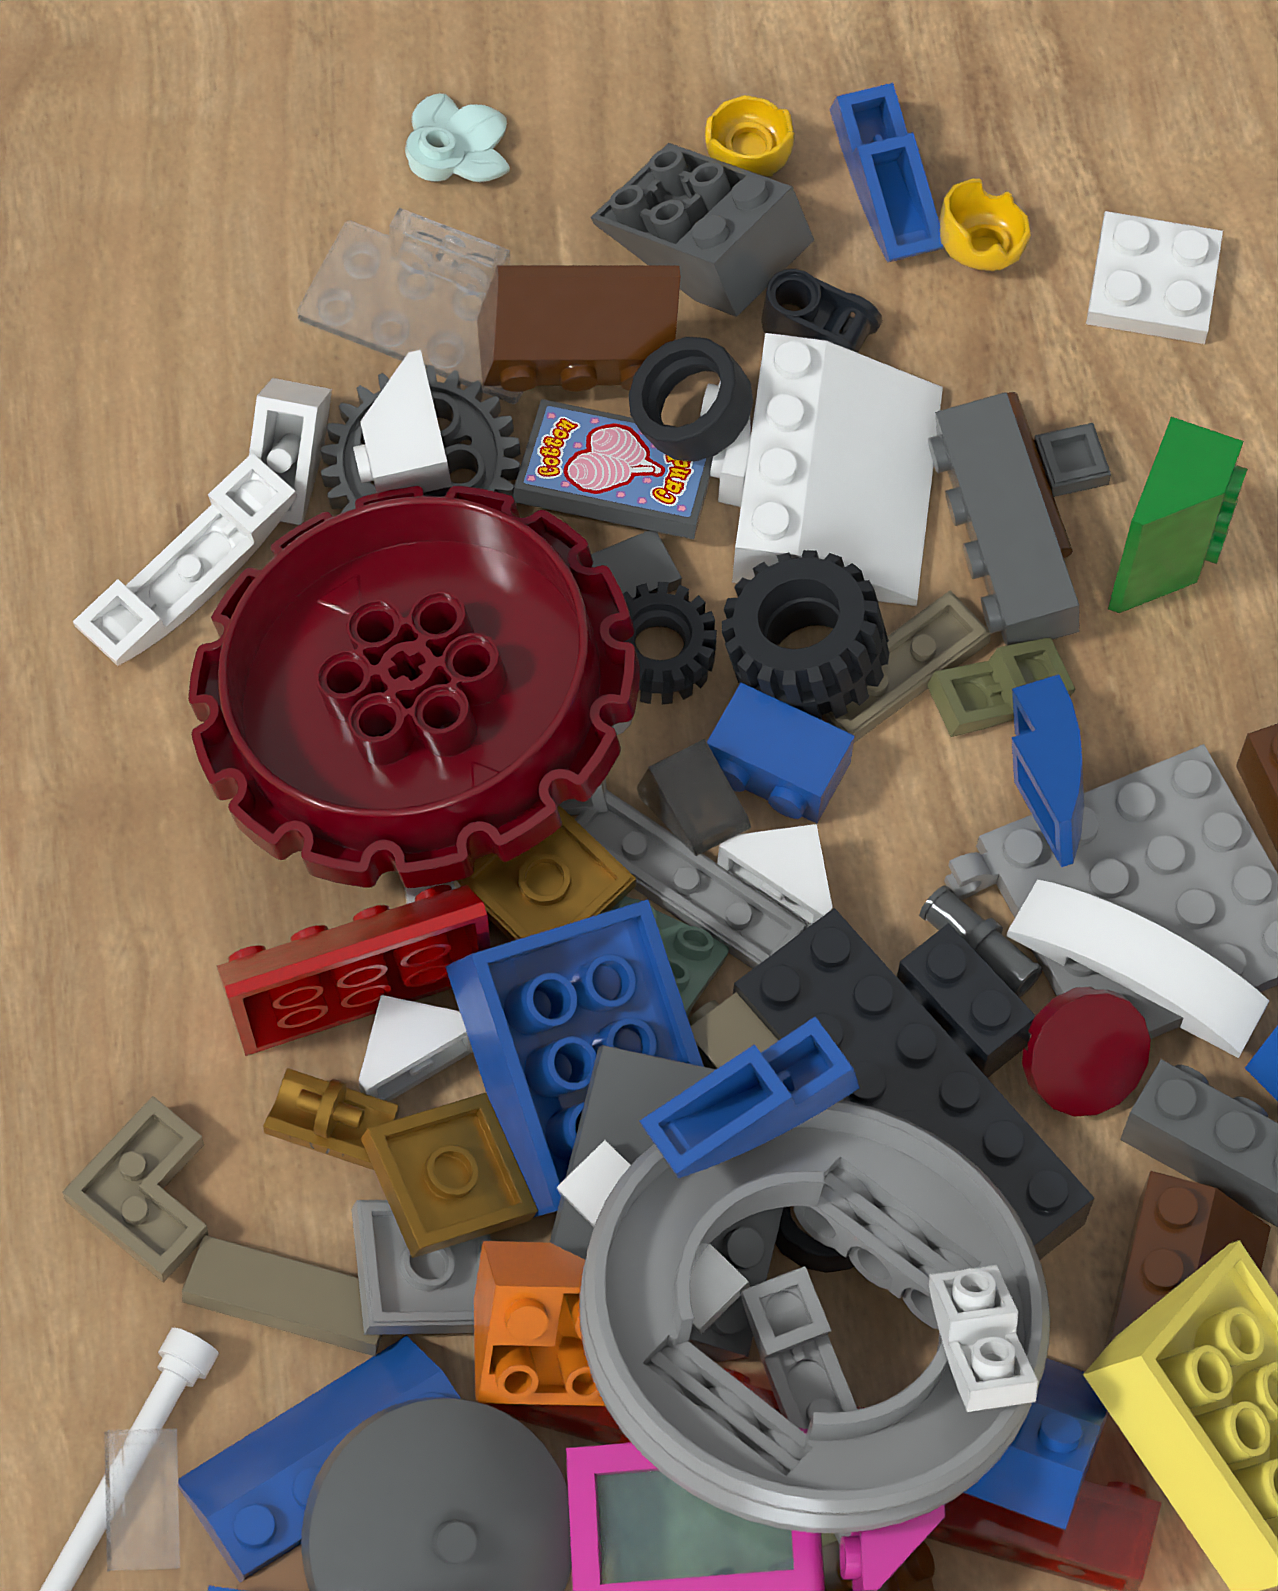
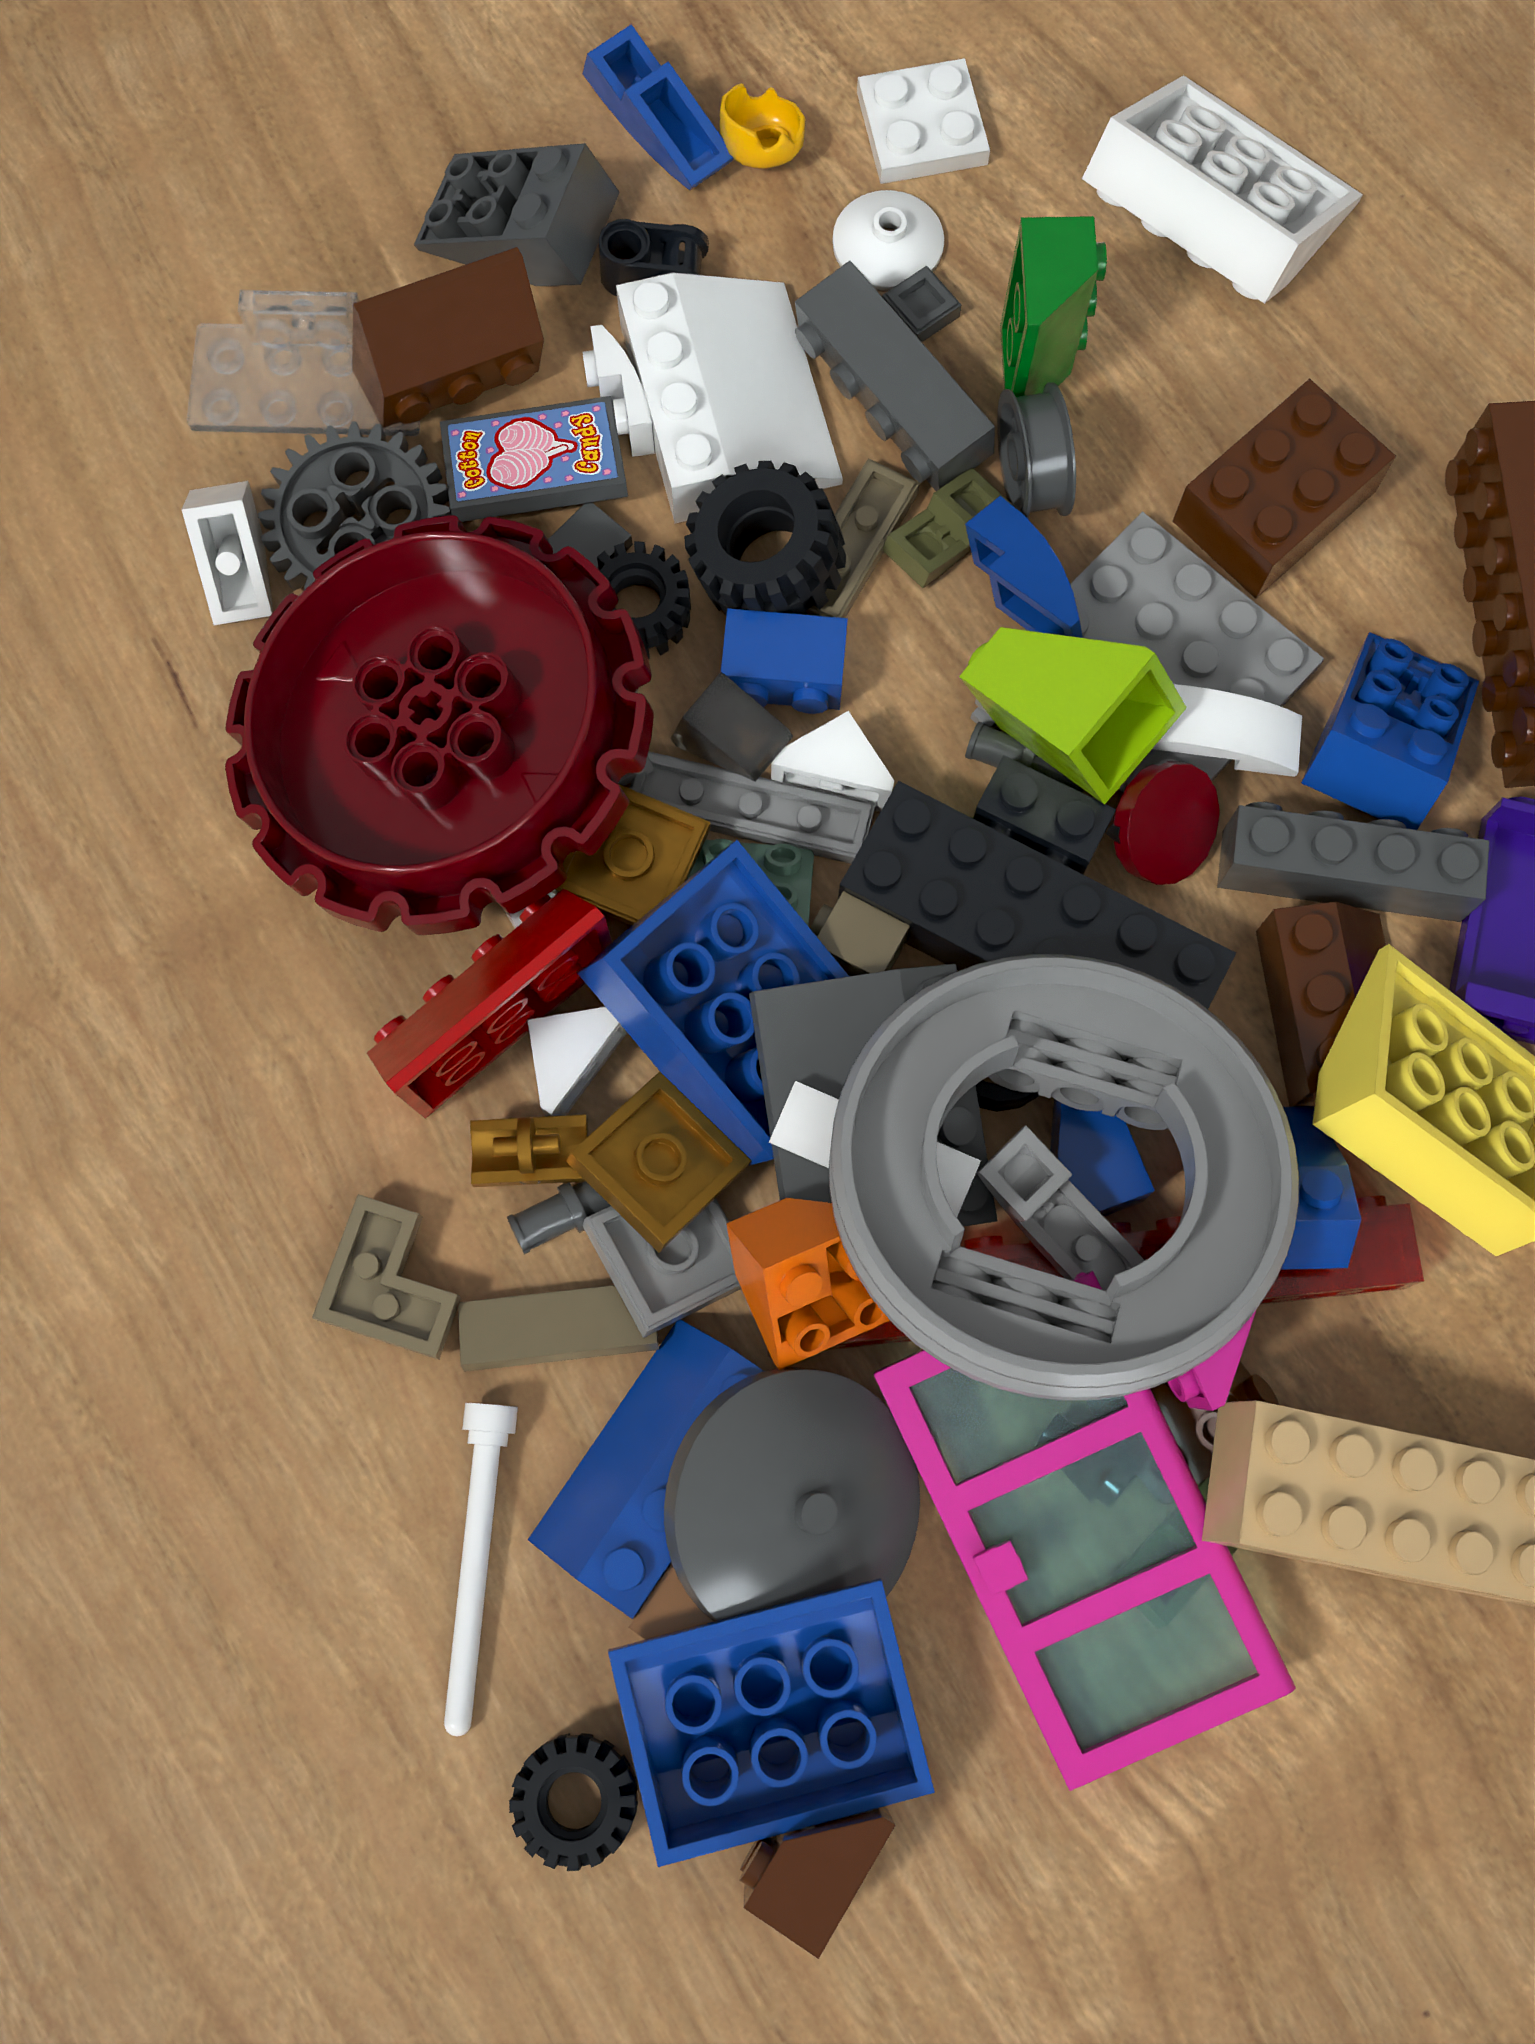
camera: 20 degrees left, 10 degrees up
(142, 1500) = (505, 1575): clear tile -> none
(191, 566) = (189, 690): white slope -> none
(330, 1190) = (556, 1215): none -> dark grey pin
(403, 434) = (331, 494): white slope -> none
(455, 141) = (265, 219): light aqua plate -> none
(666, 369) = (543, 347): black tyre -> none
(750, 135) = (524, 116): yellow hair -> none
(751, 1100) = (924, 997): blue slope -> none
(874, 1343) = (1100, 1157): none -> blue slope
(981, 1339) = (1229, 1138): white slope -> none
(1033, 896) = (1076, 702): none -> lime slope
(1061, 401) = (885, 255): none -> white dish
(1112, 646) = (1037, 451): none -> dark grey wheel

